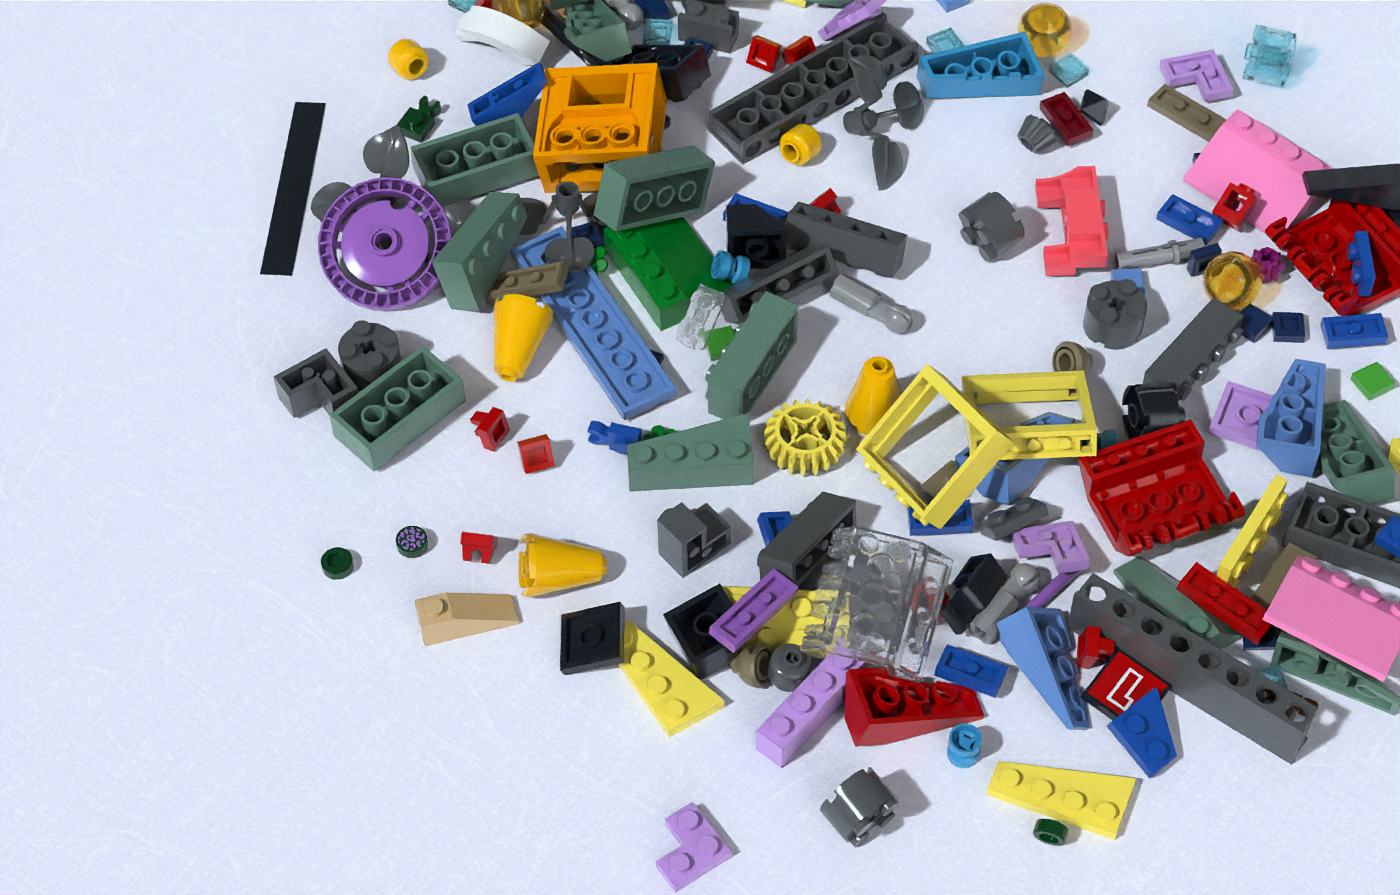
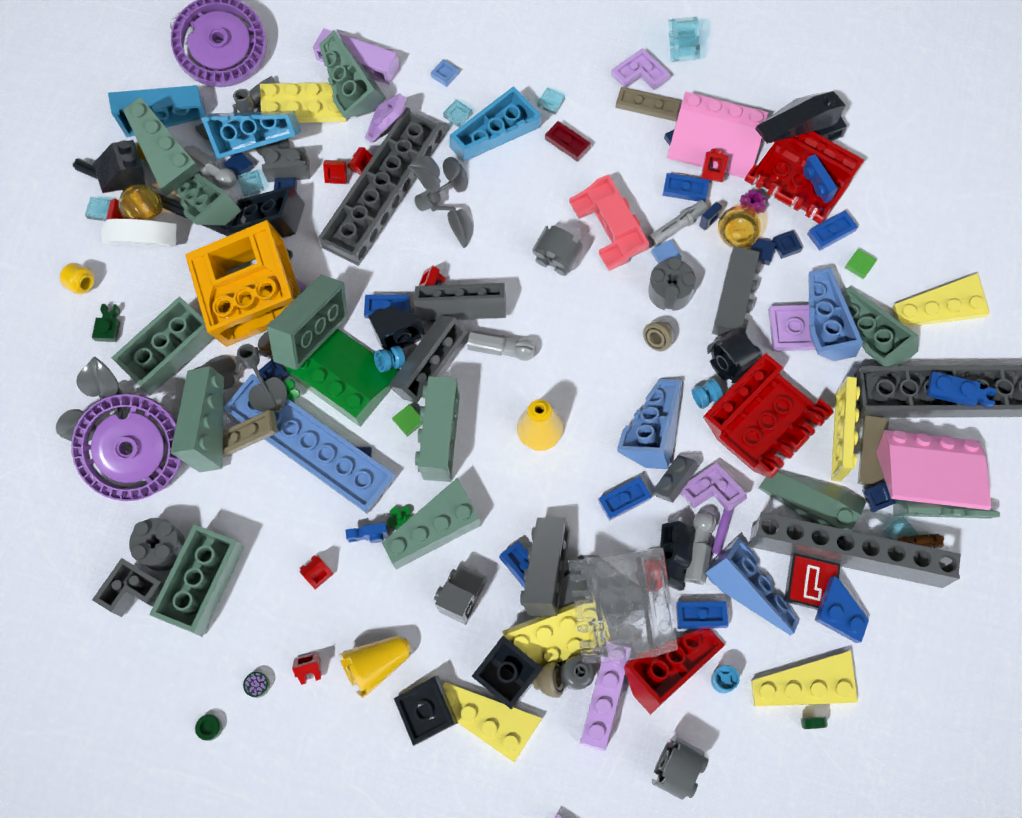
camera: 20 degrees left, 15 degrees up
(293, 189) = (37, 420): black sticker -> none
(462, 615) = (323, 732): tan slope -> none
(491, 427) = (273, 565): red tile -> none
(509, 97) = (167, 286): blue slope -> none
(518, 333) = (260, 481): yellow cone -> none
(701, 317) = (389, 415): clear bracket -> none
(753, 610) = (539, 651): medium lavender plate -> none
(800, 144) = (393, 236): yellow head -> none
(803, 427) = (511, 478): light yellow gear -> none
(897, 422) = (555, 467): light yellow window -> none
(940, 478) = (615, 469): dark tan brick -> none
(1036, 134) = (553, 162): dark grey piece -> none
(1036, 440) = (663, 422): light yellow window -> none
(1046, 28) = (524, 75): clear yellow helmet -> none
(1093, 647) = (775, 560): red tile -> none
(1094, 107) = (582, 124): black slope -> none
(1225, 602) = (853, 488): red plate -> none

